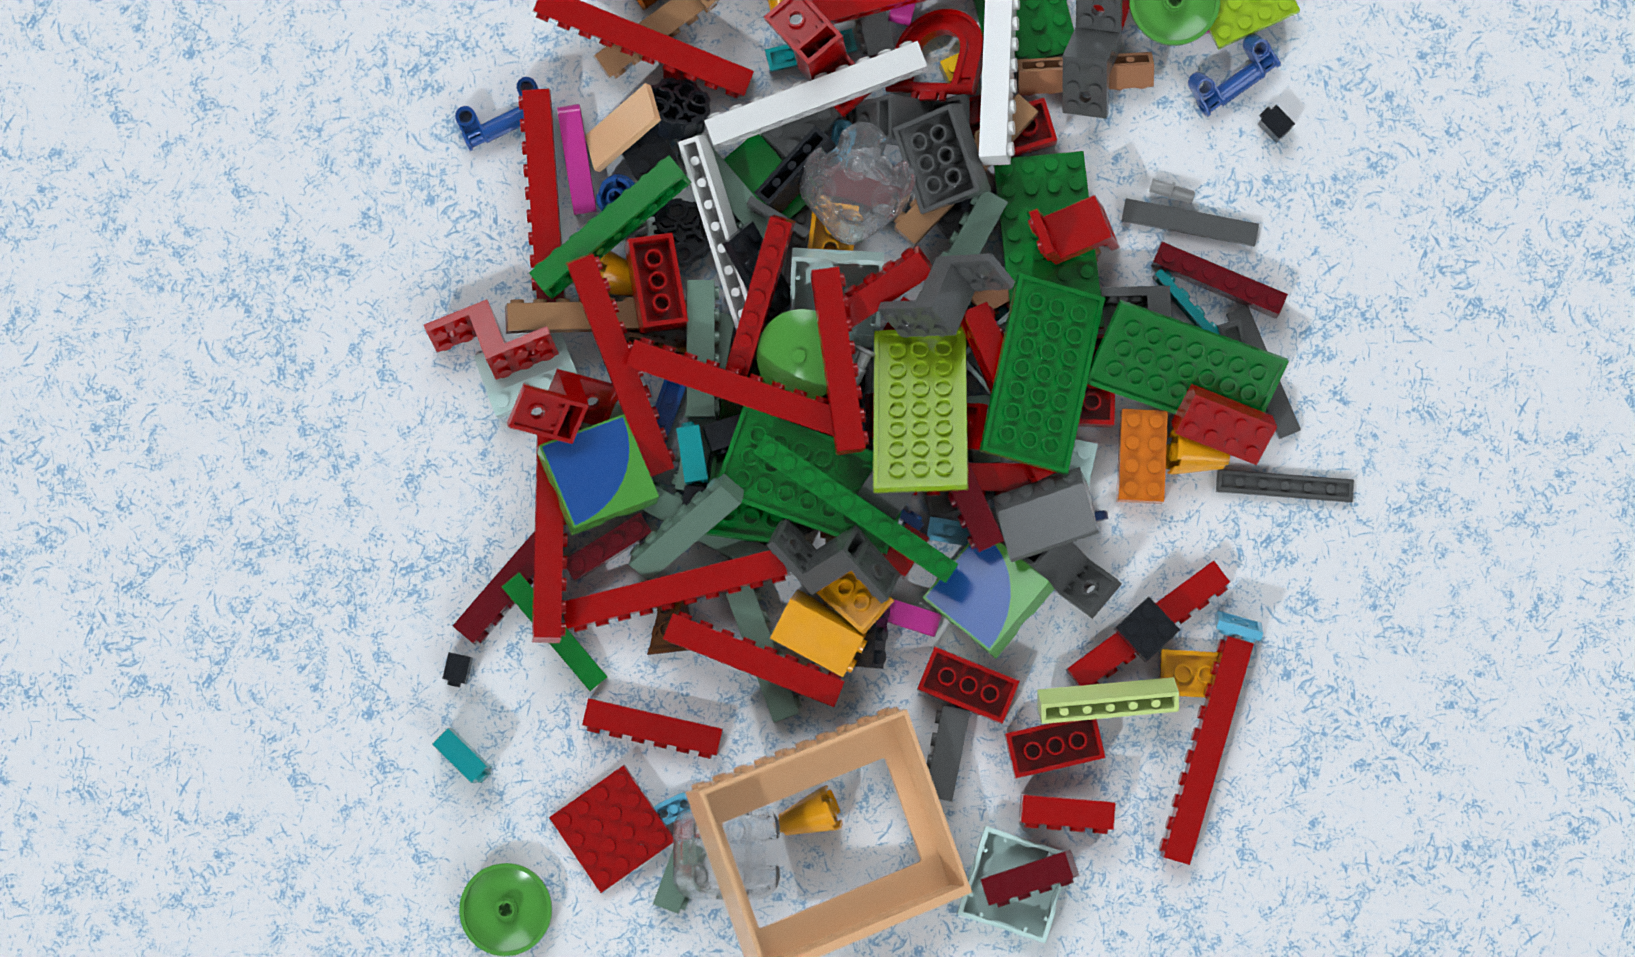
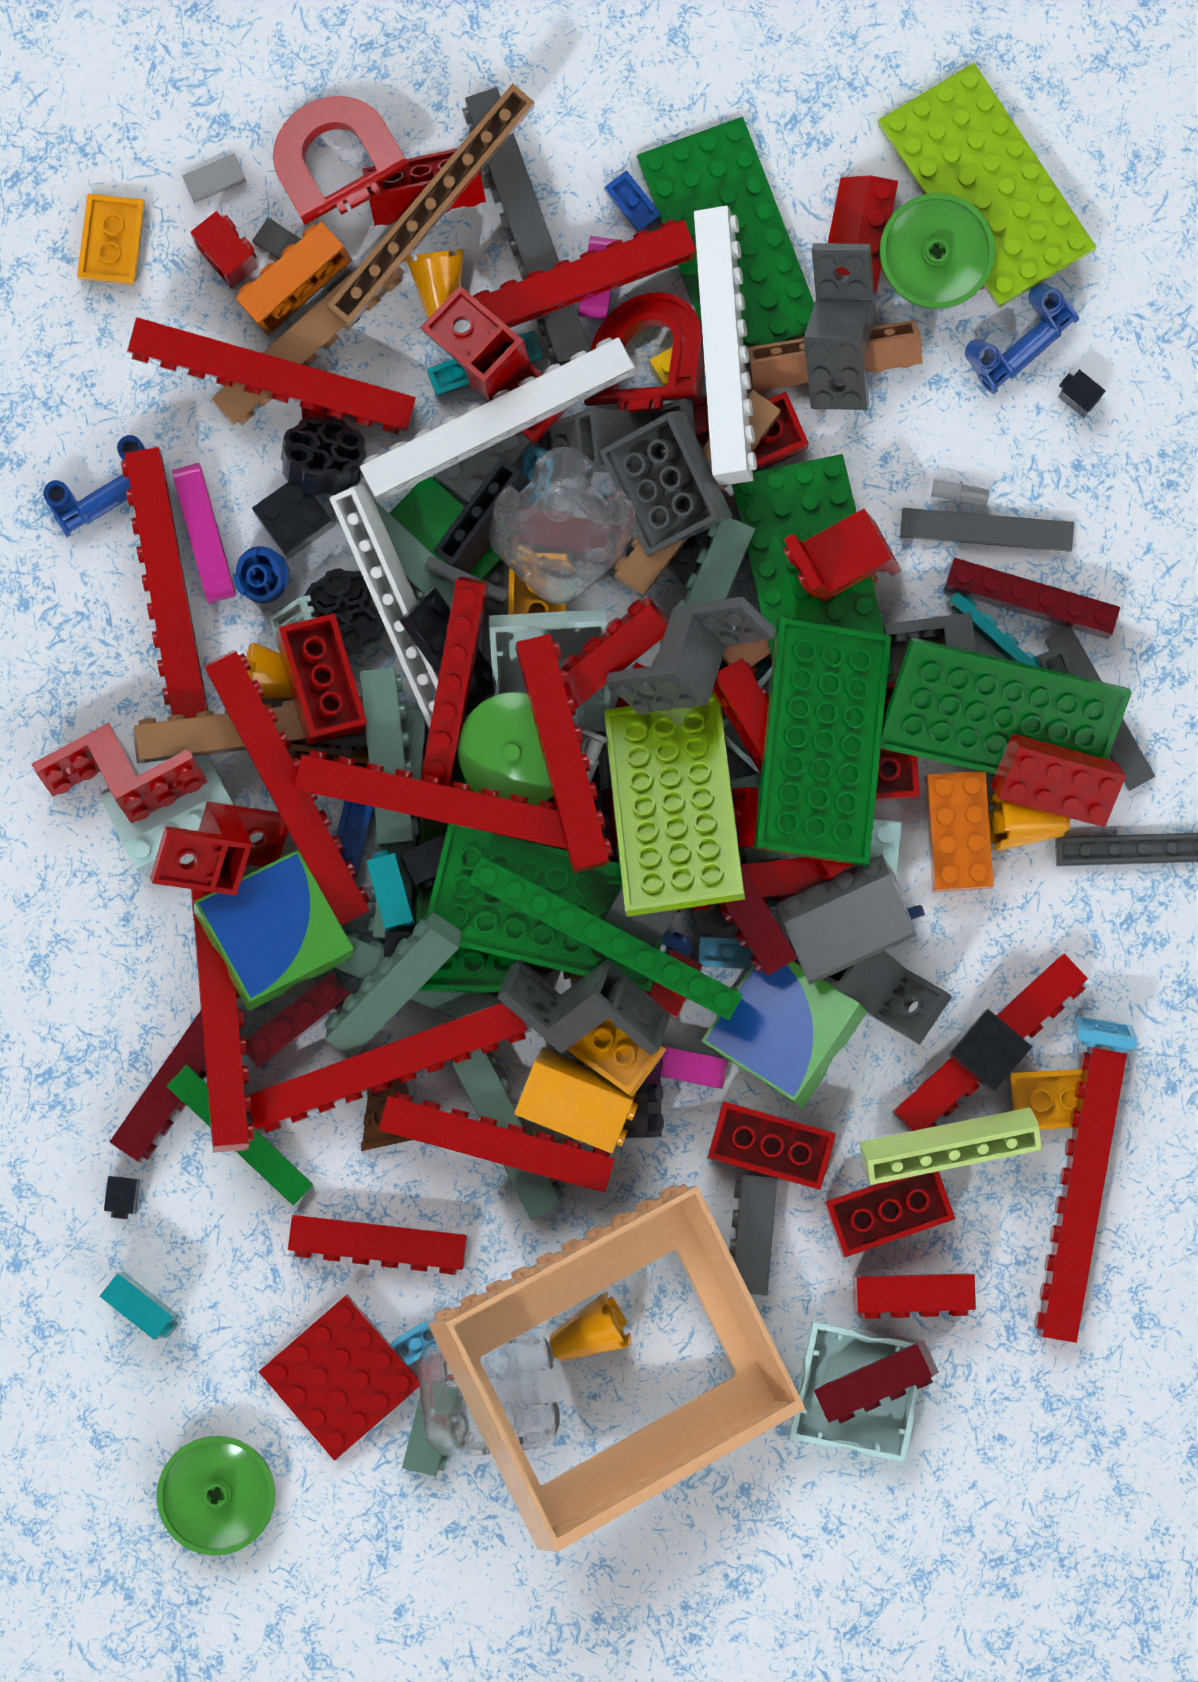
camera: 10 degrees left, 0 degrees up
(612, 224) = (257, 610): green brick -> none
(622, 127) = (257, 487): light nougat tile -> none

